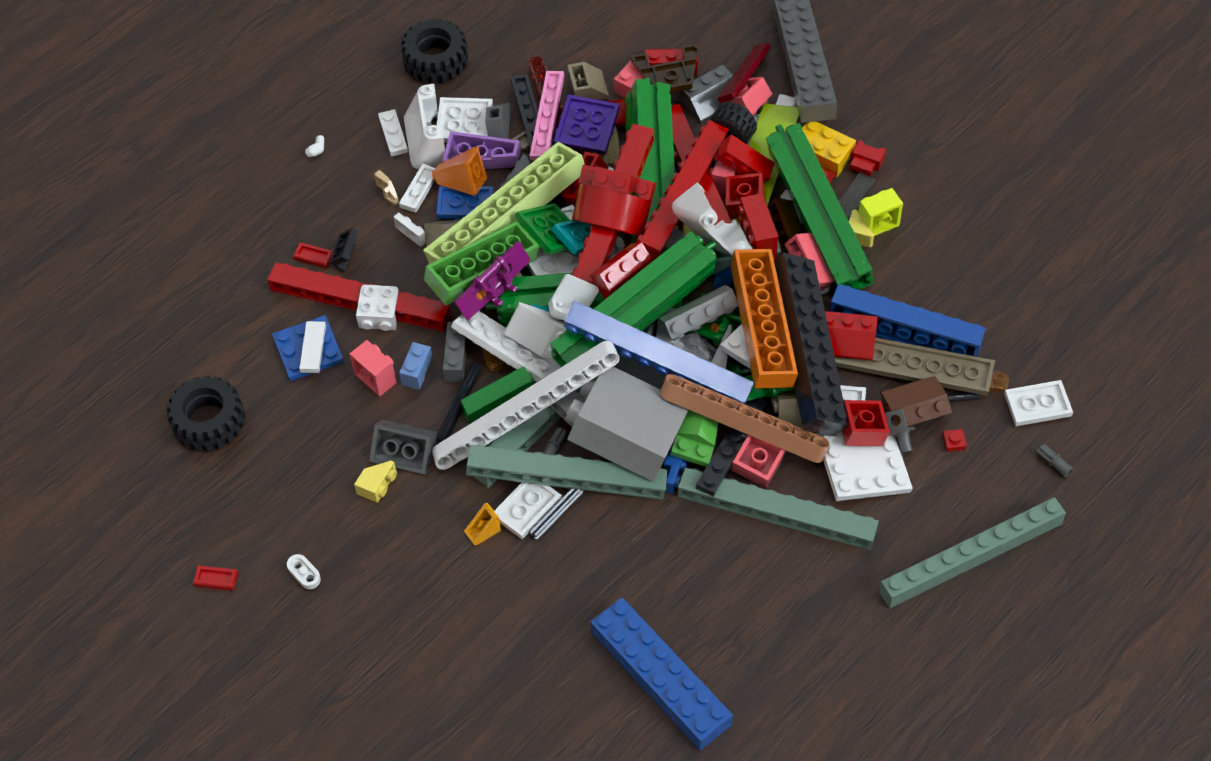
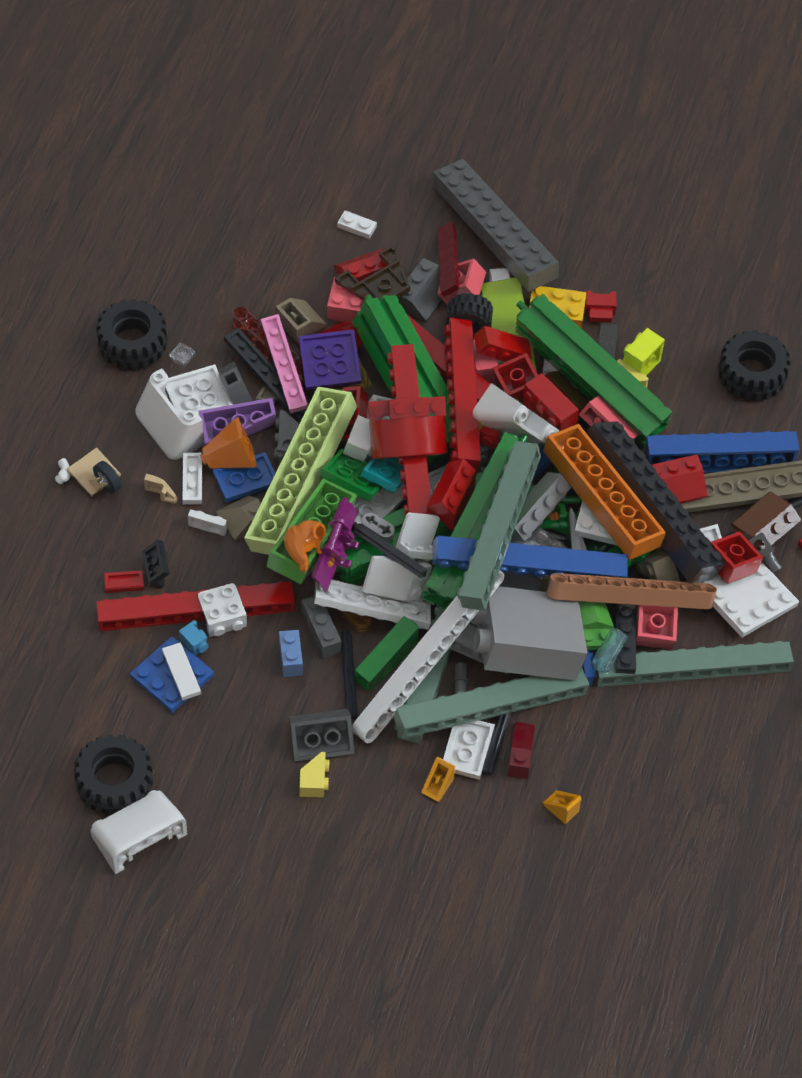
camera: 30 degrees left, 0 degrees up
(200, 466) = (137, 828): none -> white windscreen
(215, 578) = (211, 927): red tile -> none
(305, 572) = (295, 887): white plate -> none
(340, 156) = (96, 473): none -> tan plate
(342, 323) = (193, 638): none -> dark azure brick
(373, 367) = (253, 670): coral brick -> none
(393, 133) = (132, 431): white plate -> none
(459, 264) = (301, 539): none -> orange piece
(470, 82) = (182, 354): none -> clear plate
(539, 304) = (390, 550): none -> black axle
(540, 282) = (379, 526): none -> light grey beam
(565, 201) = (359, 443): none -> white brick
(572, 527) = (521, 750): none -> dark red slope
(584, 592) = (563, 805): none -> light orange slope
(635, 311) = (499, 526): none -> sand green brick
(661, 673) = (671, 850): blue brick -> none
(681, 231) = (489, 437): none -> red plate
(684, 21) = (356, 224): none -> white plate
(696, 465) = (609, 650): none -> clear light blue brick
(987, 238) = (757, 347): none -> black tyre

